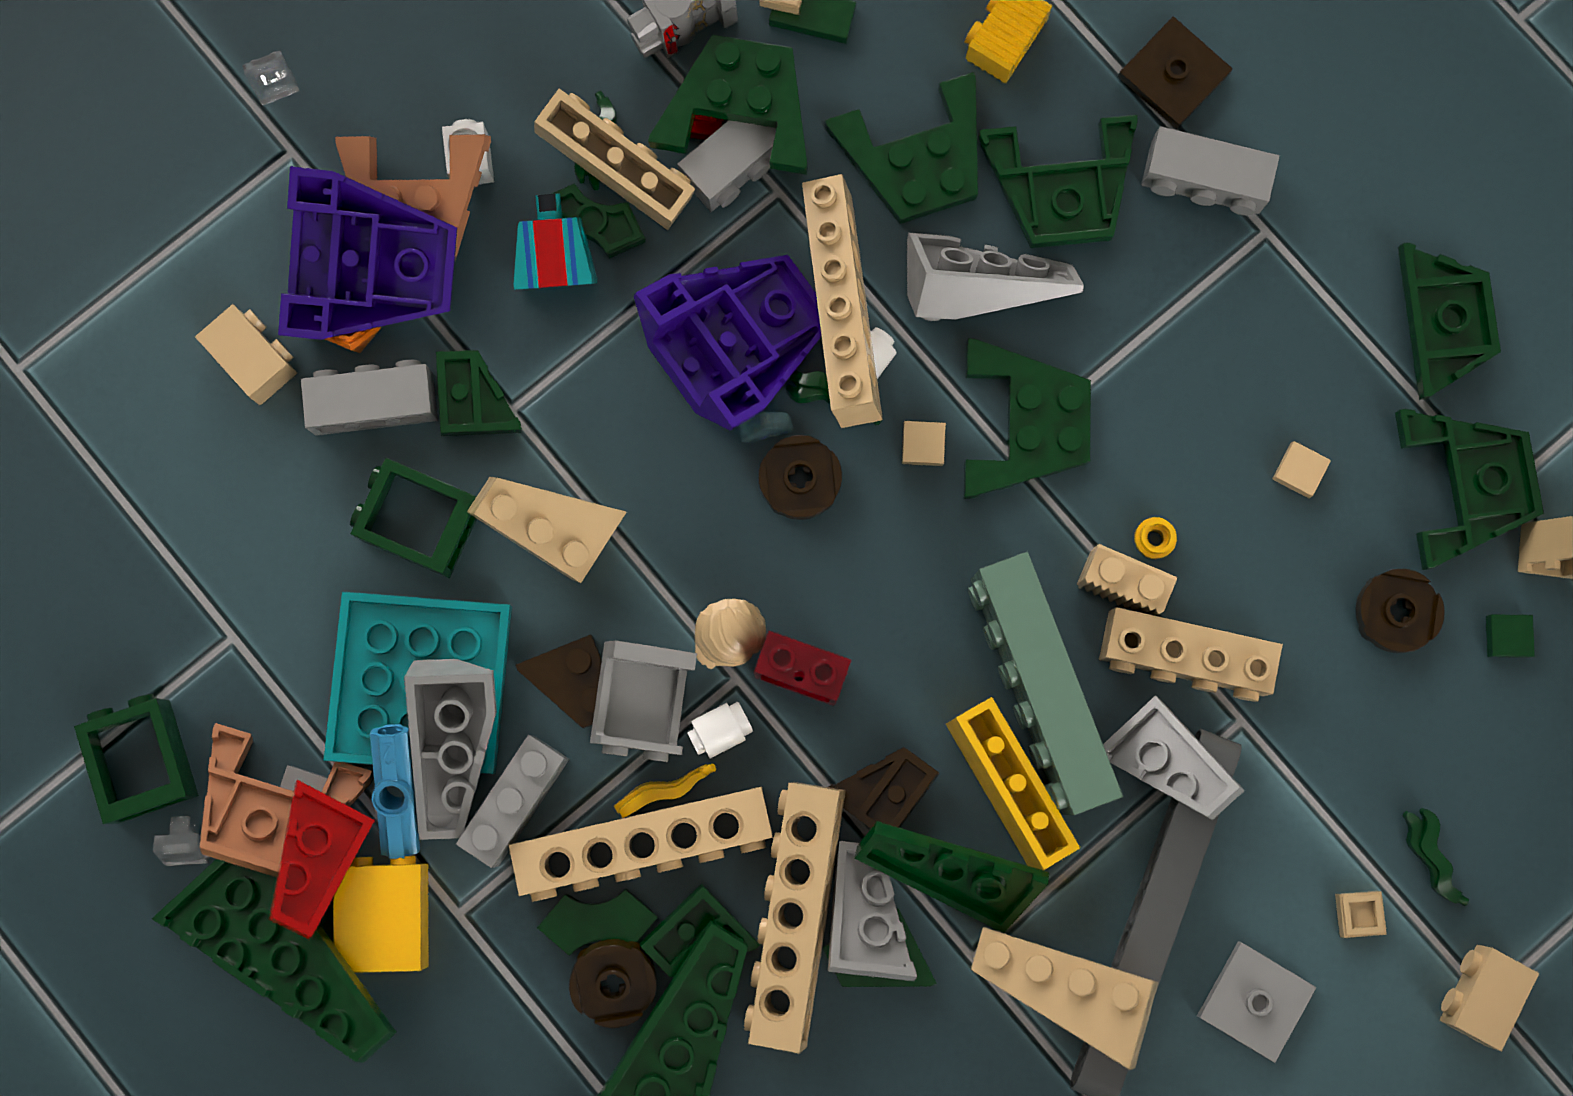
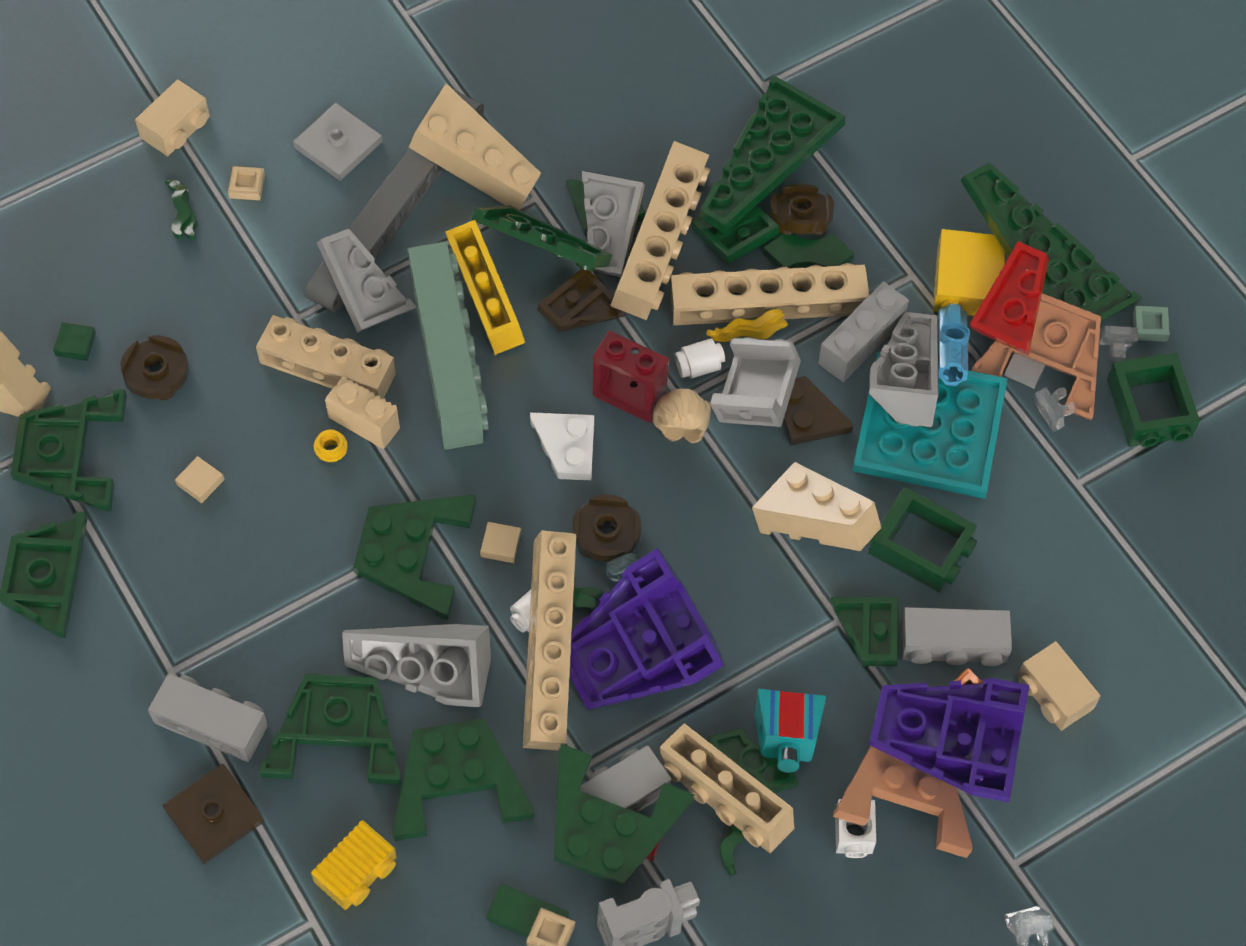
camera: 170 degrees left, 20 degrees down
(139, 880) = (1151, 323): none -> sand green plate
(265, 725) = (1051, 409): none -> clear tile
(868, 590) = (567, 443): none -> white wing

